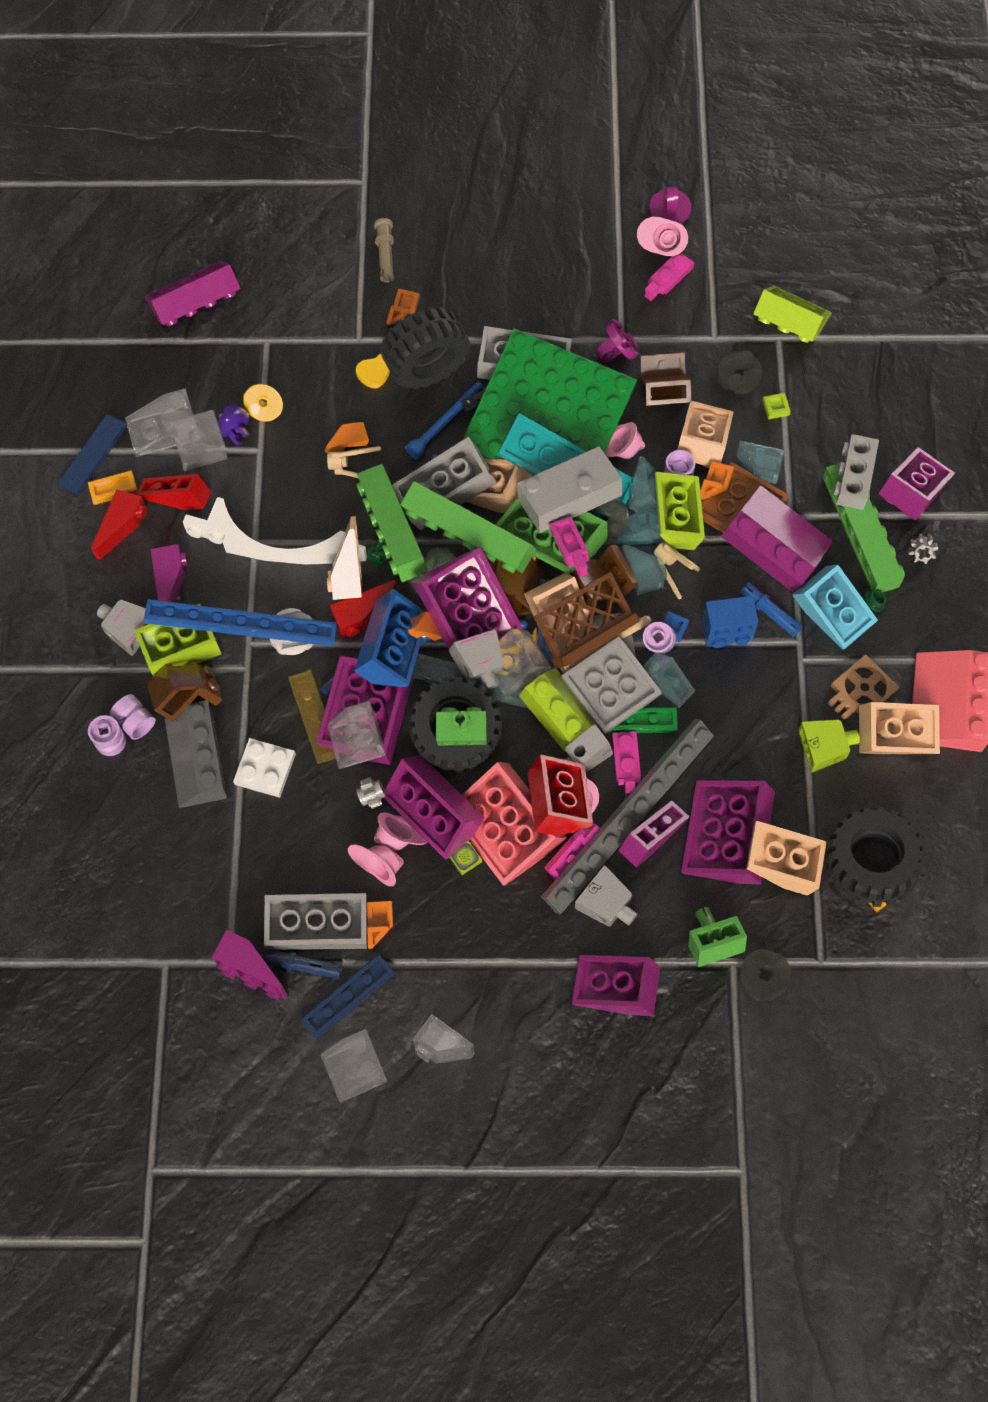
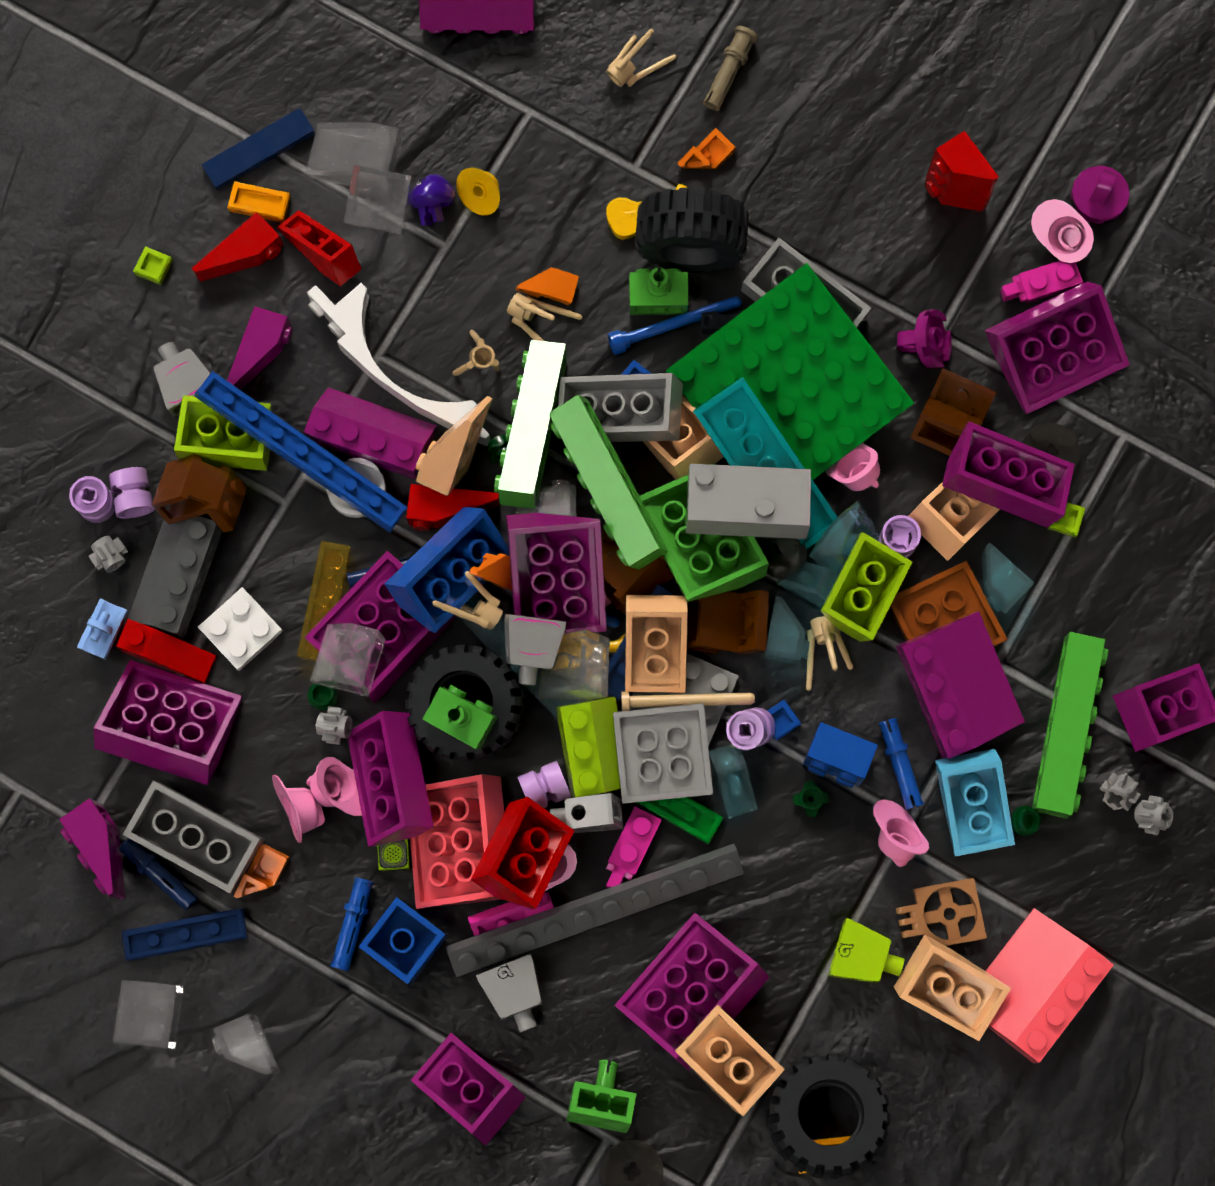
camera: 30 degrees right, 10 degrees up
(60, 565) = (153, 265): none -> lime tile
(139, 766) = (108, 554): none -> light grey gear
(165, 818) = (102, 629): none -> light blue hips
(219, 809) = (165, 651): none -> red slope
(249, 857) = (167, 722): none -> magenta slope
(282, 590) = (369, 432): none -> magenta slope
(314, 284) = (622, 68): none -> tan plant
(330, 498) = (480, 356): none -> tan plant
(349, 779) = (322, 696): none -> dark green plate
(423, 404) = (658, 292): none -> bright green brick
(432, 659) = (484, 613): none -> tan plant
(461, 909) = (352, 923): none -> blue pin
(509, 908) = (403, 941): none -> blue brick
(544, 744) = (545, 785): none -> lavender wheel
(570, 544) = (707, 570): dark pink hinge -> none
(579, 232) = (961, 175): none -> red slope
(592, 639) = (669, 691): reddish brown fence -> none
(653, 833) = (609, 946): magenta slope -> none
(703, 306) = (1058, 346): none -> magenta slope
(717, 480) = (933, 576): orange slope -> none
(725, 393) = (1009, 475): none -> magenta slope
(729, 658) = (810, 789): none -> dark green plate
(791, 313) = (1158, 412): lime slope -> none
(800, 655) = (899, 833): none -> bright pink piece
(860, 462) = (1111, 653): light grey brick -> none
(954, 551) = (1153, 815): none -> light grey gear

